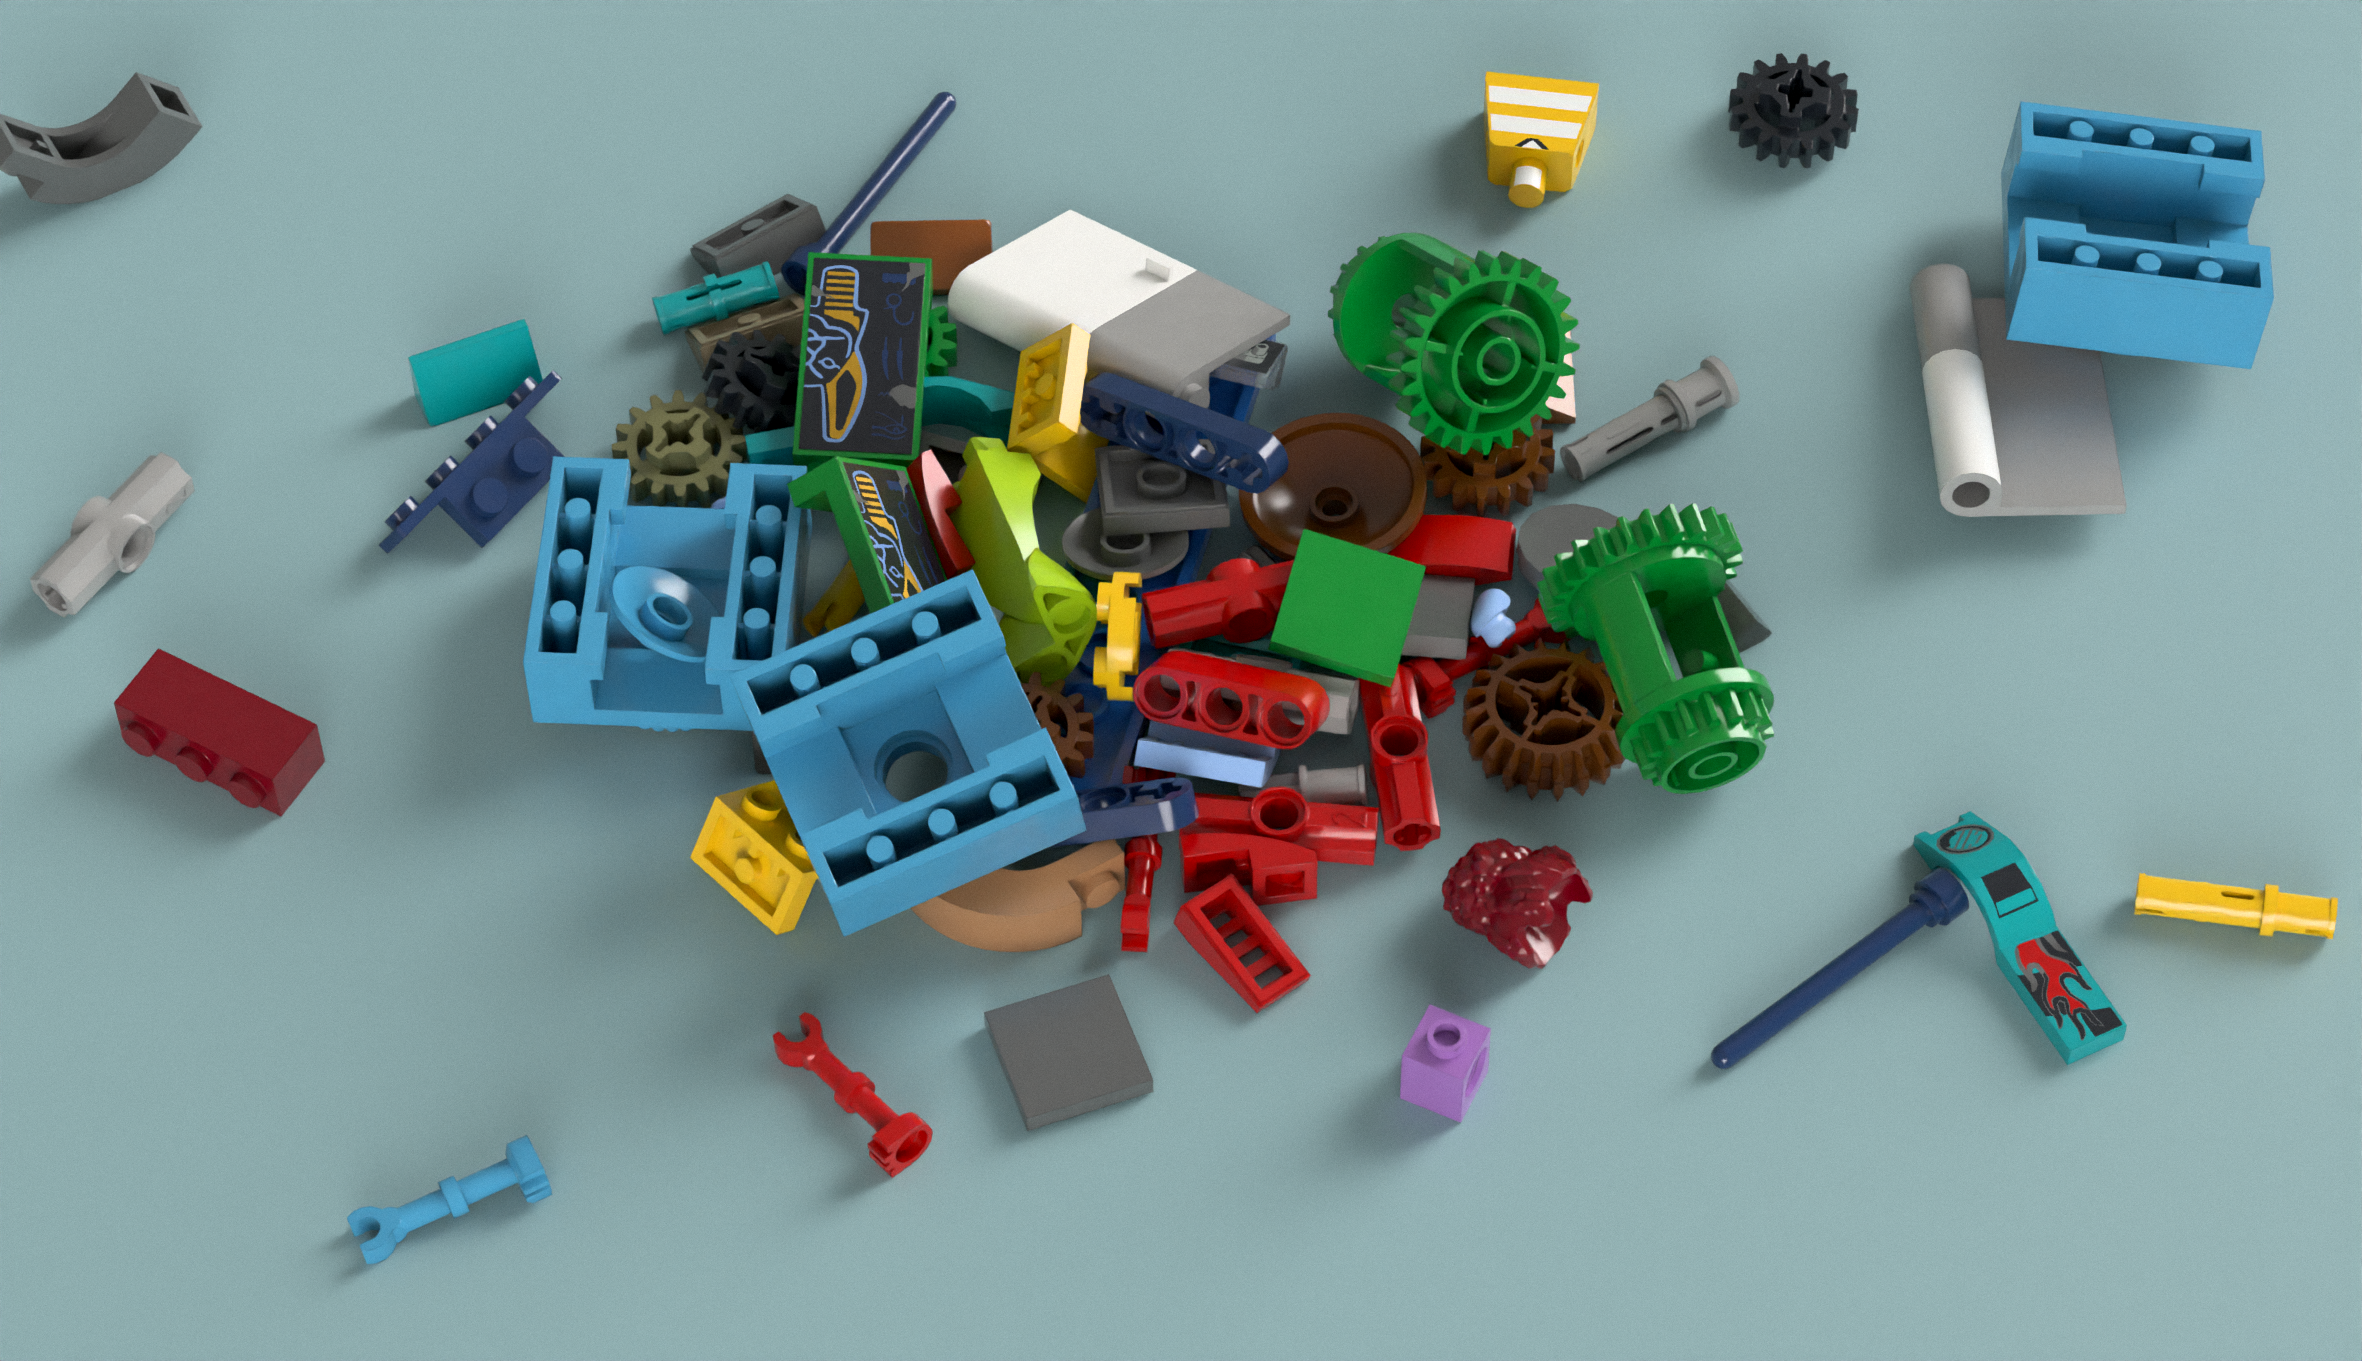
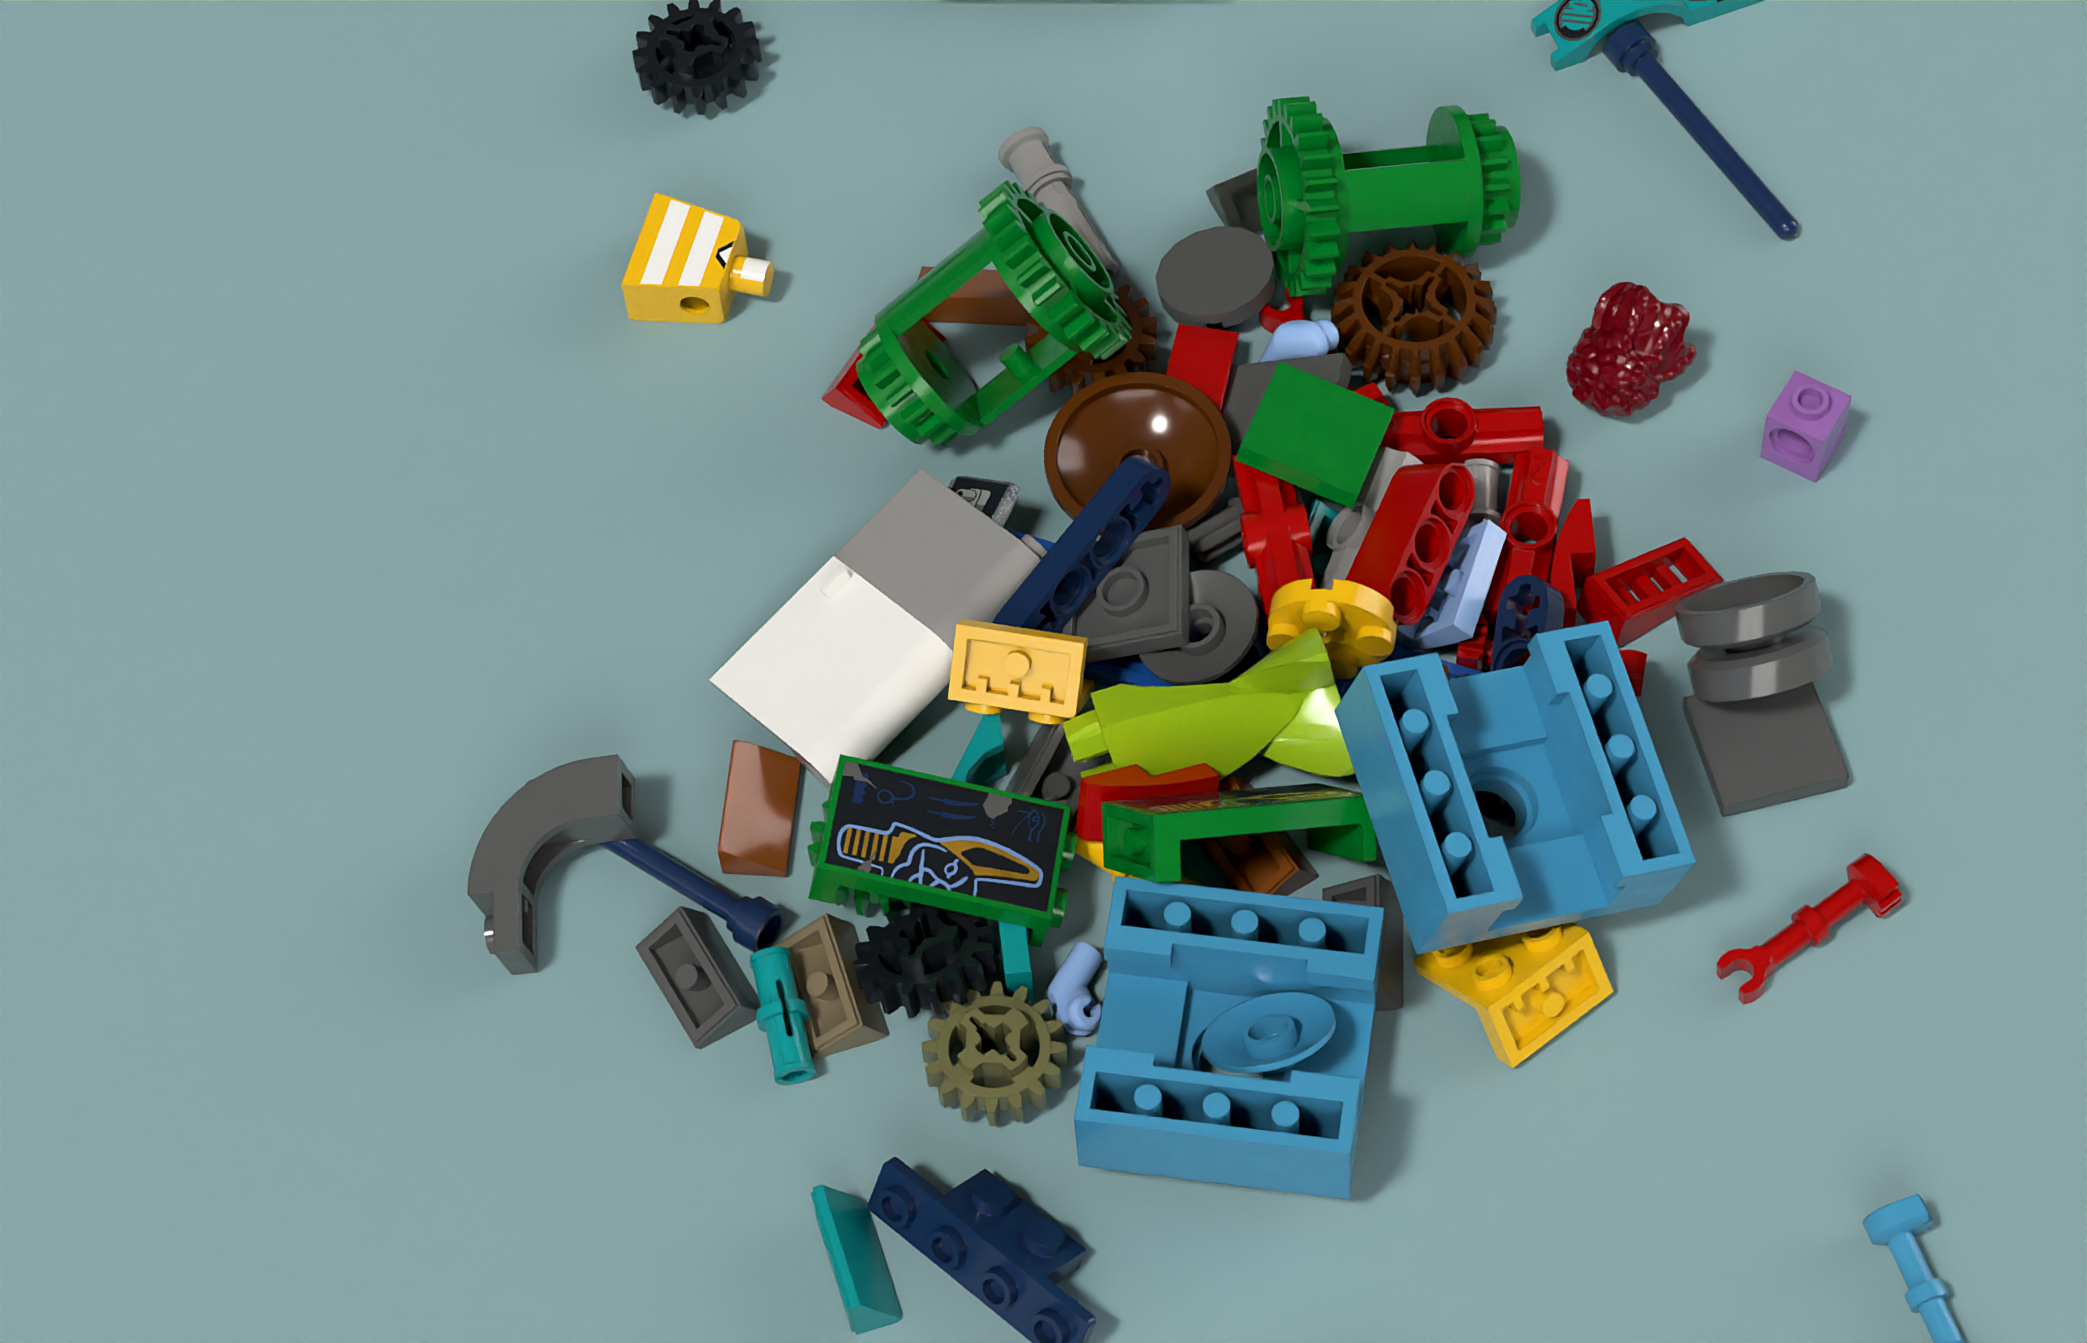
camera: 80 degrees left, 5 degrees up
(861, 86) = (531, 833): none -> dark grey arch
(1150, 998) = (1754, 636): none -> dark grey wheel

